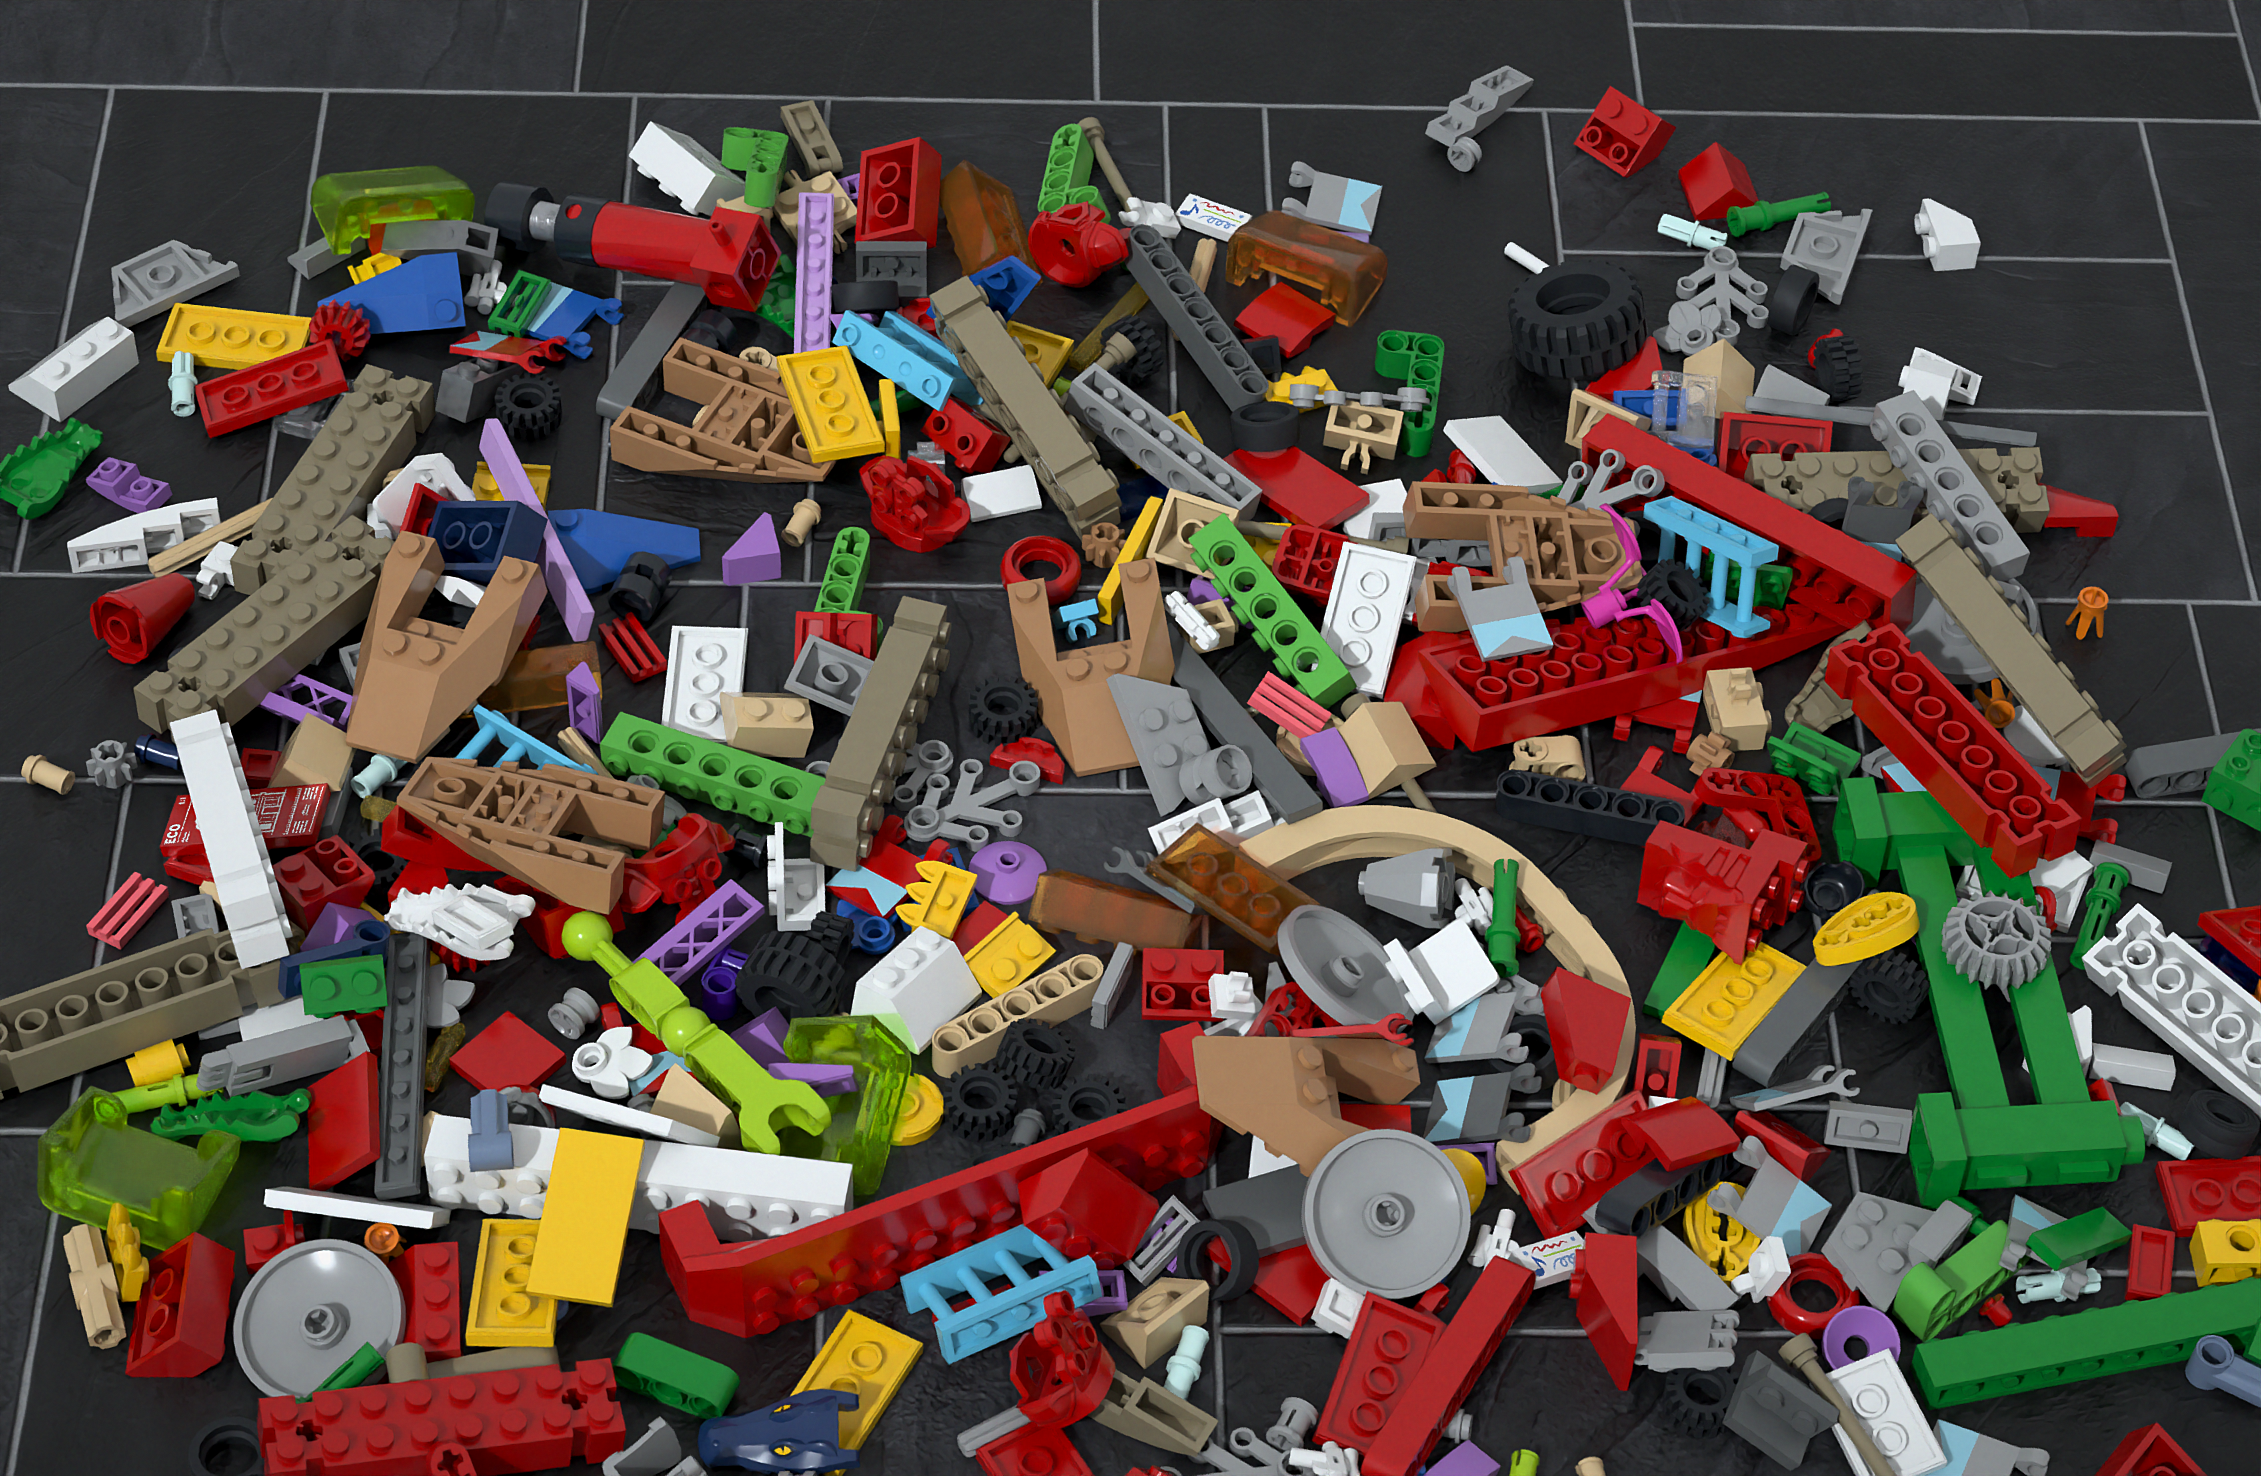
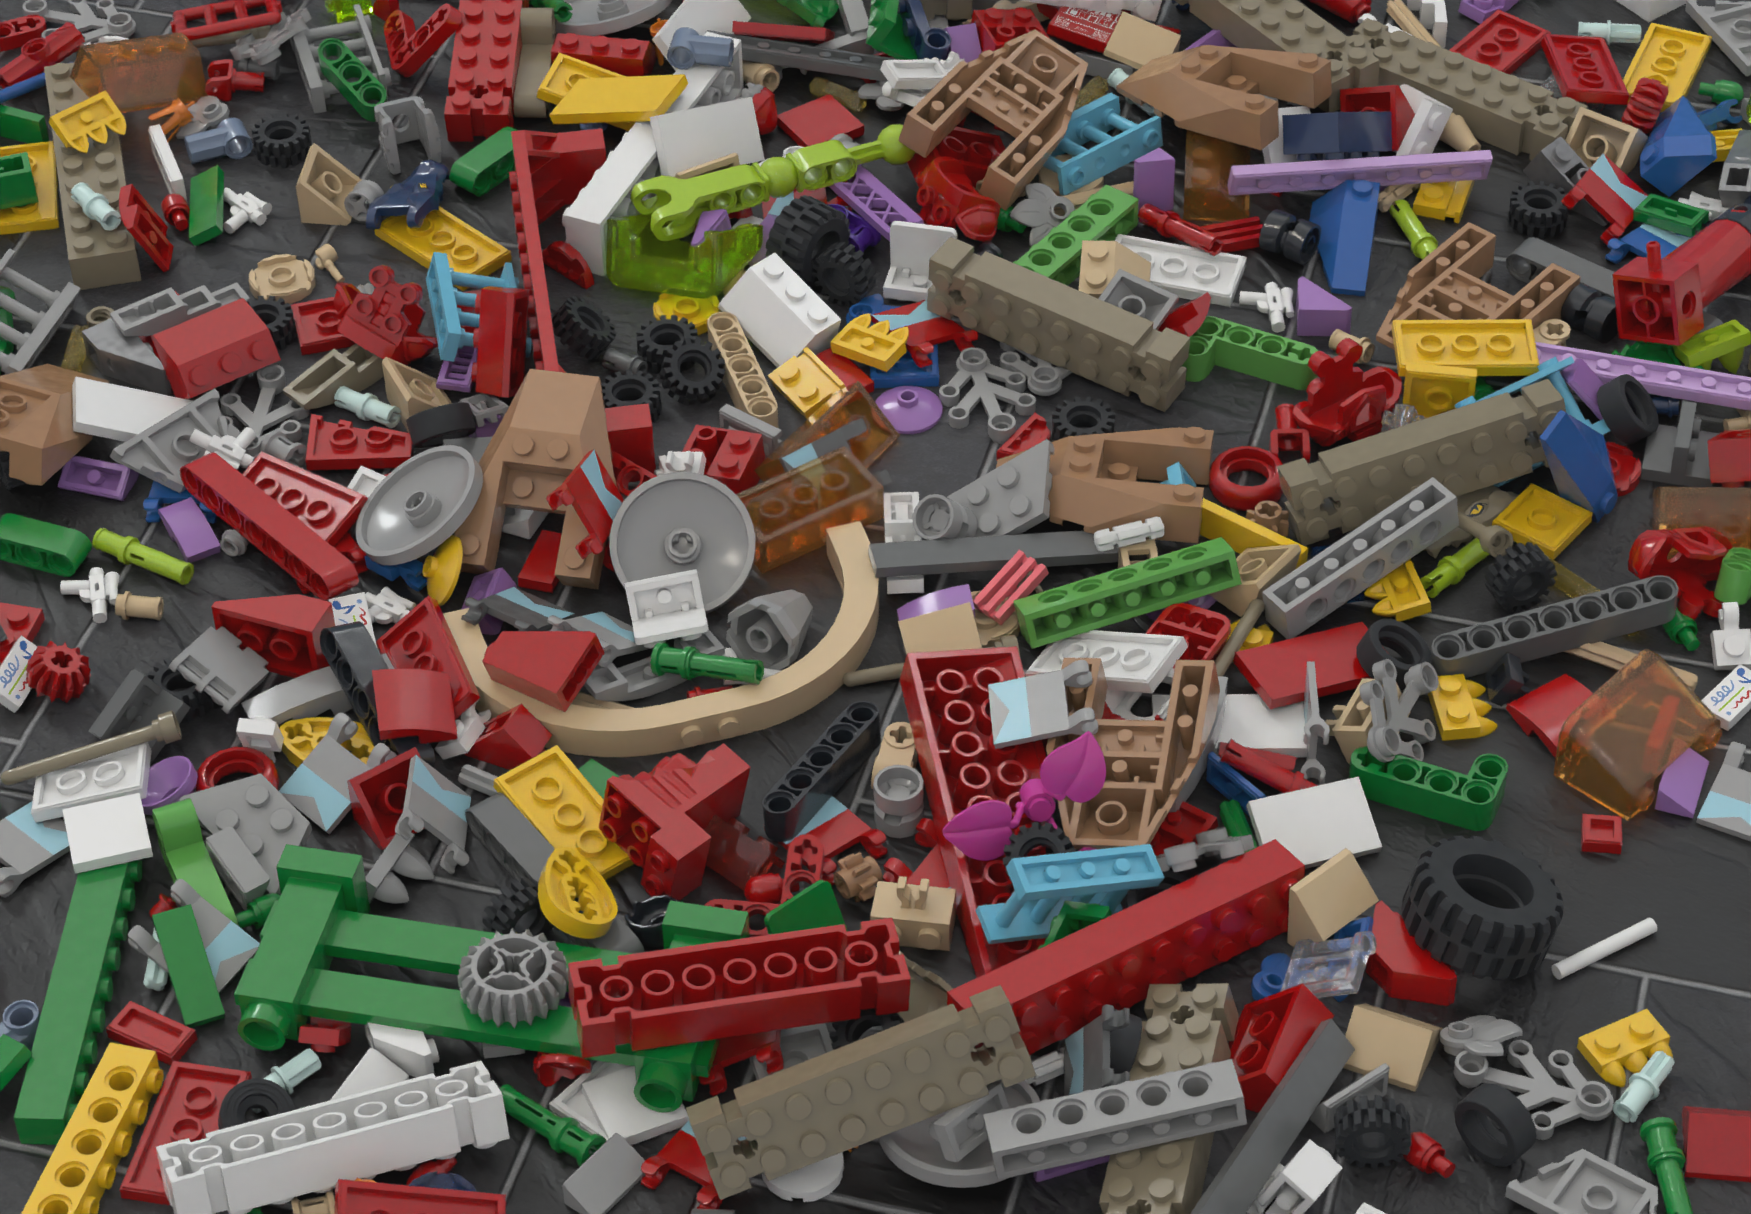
camera: 110 degrees right, 5 degrees down
(212, 469) = (1501, 42): none -> red tile
(279, 287) = (1722, 91): none -> green cylinder
(327, 283) = (1719, 114): none -> blue plate
(415, 351) = (1598, 134): none -> tan slope
(612, 487) = (1421, 241): none -> lime pin
(637, 693) = (1171, 225): none -> red pin
(742, 597) = (1273, 302): none -> white piece
(969, 549) = (1287, 435): none -> red piece
(1256, 1359) = (348, 447): none -> red wing
(1391, 456) = (1314, 727): none -> light grey flag
(1415, 287) = (1601, 833): none -> red tile
(1606, 741) = (898, 800): none -> light grey wheel
(1648, 254) = (1625, 1045): none -> yellow plate
(1964, 1354) = (107, 833): none -> white tile

